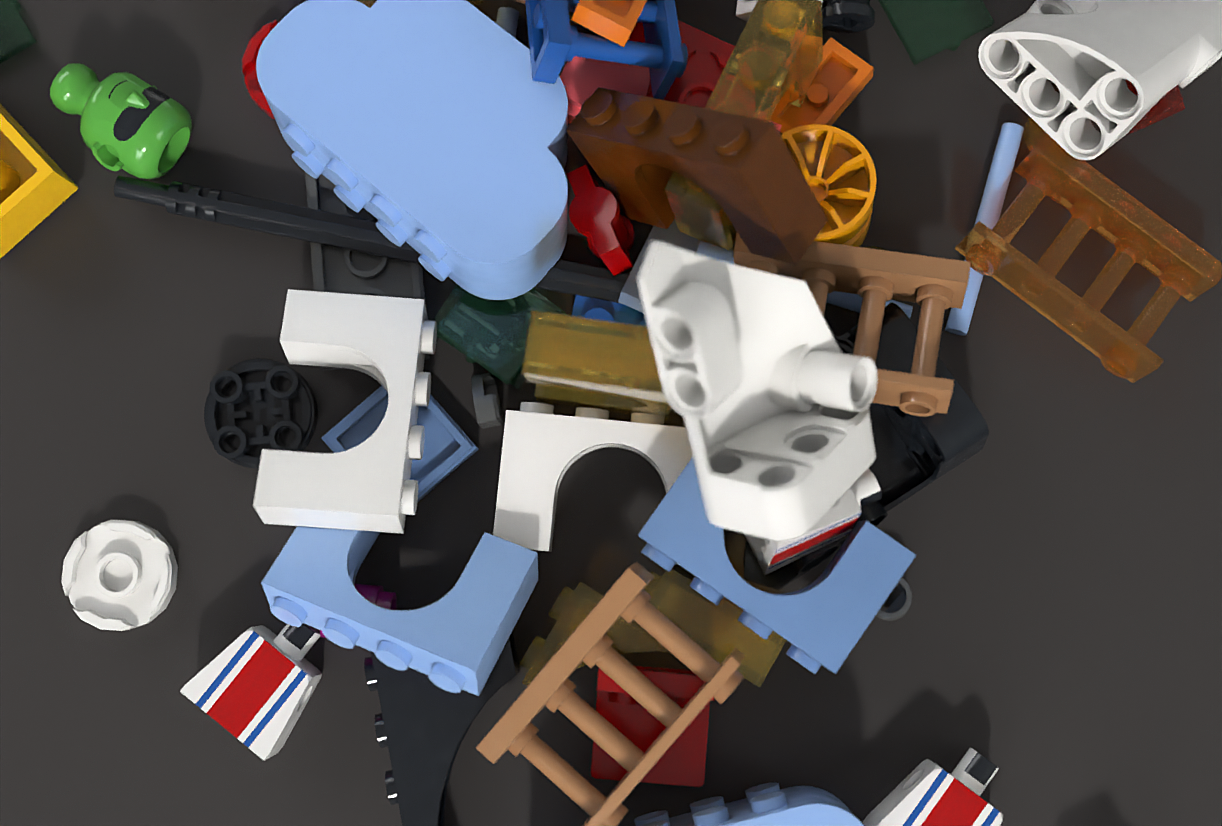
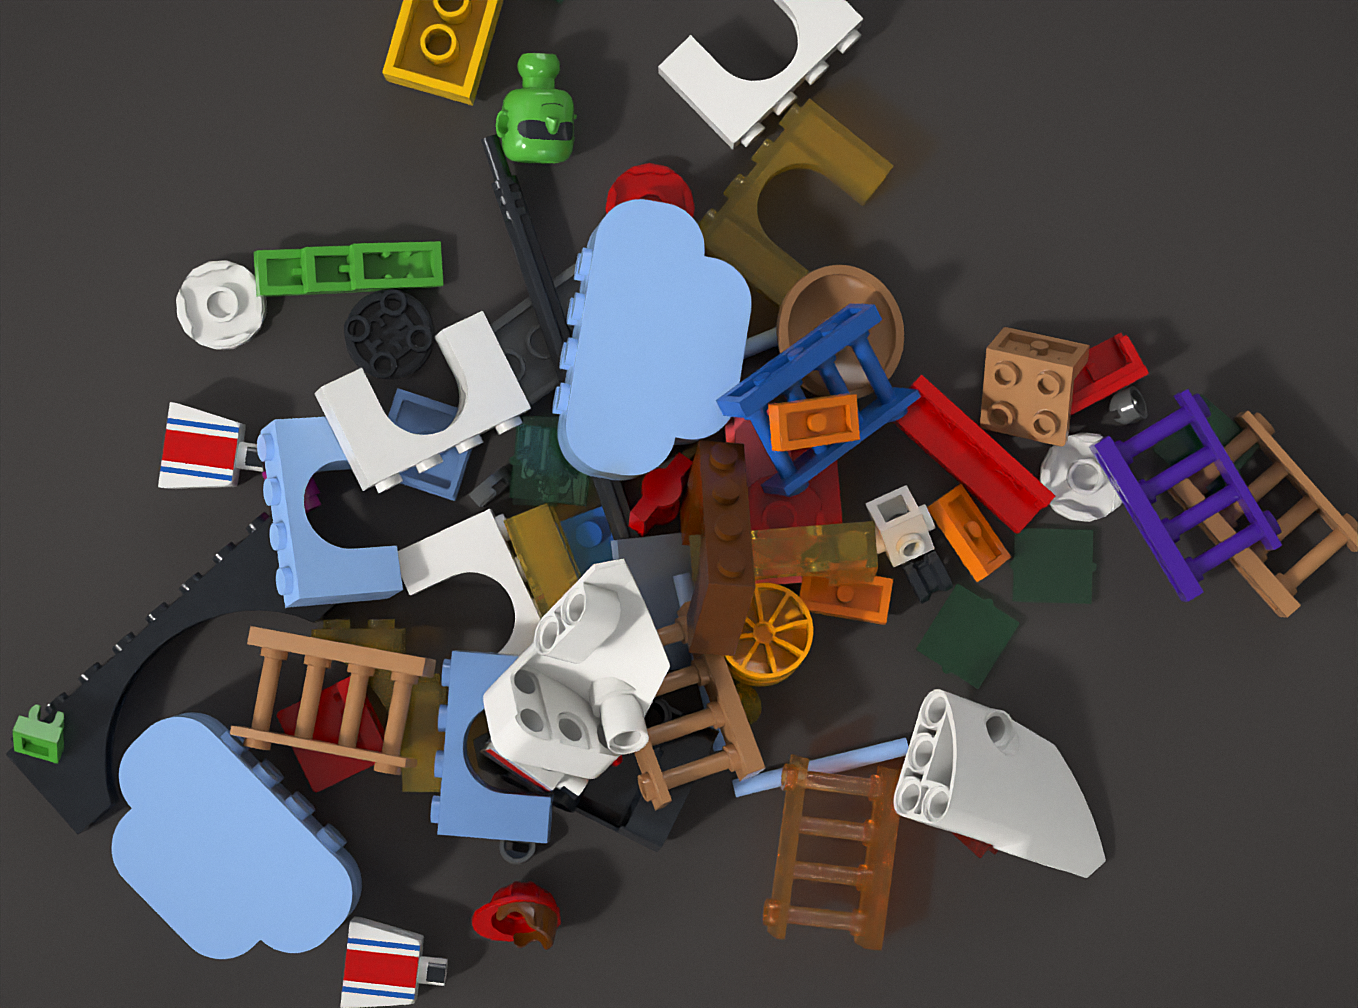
camera: 55 degrees right, 5 degrees up
(163, 417) = (348, 268): none -> bright green slope
(968, 635) = (519, 914): none -> red piece

